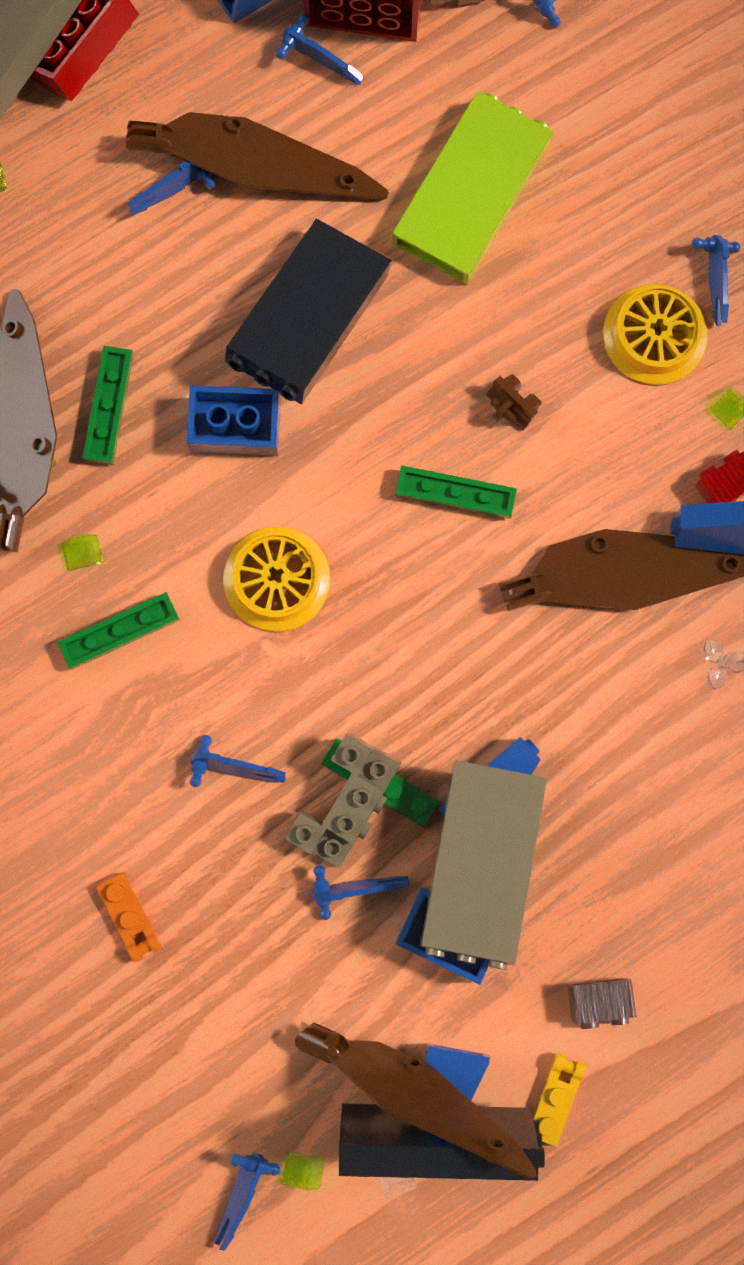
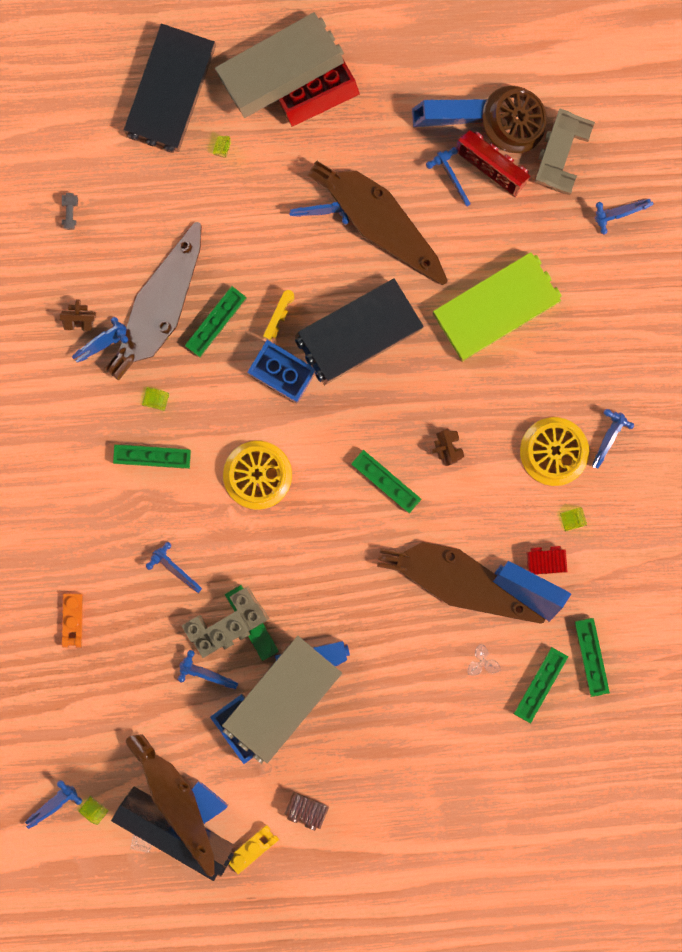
camera: 30 degrees right, 5 degrees up
(188, 349) = (279, 314): none -> yellow plate

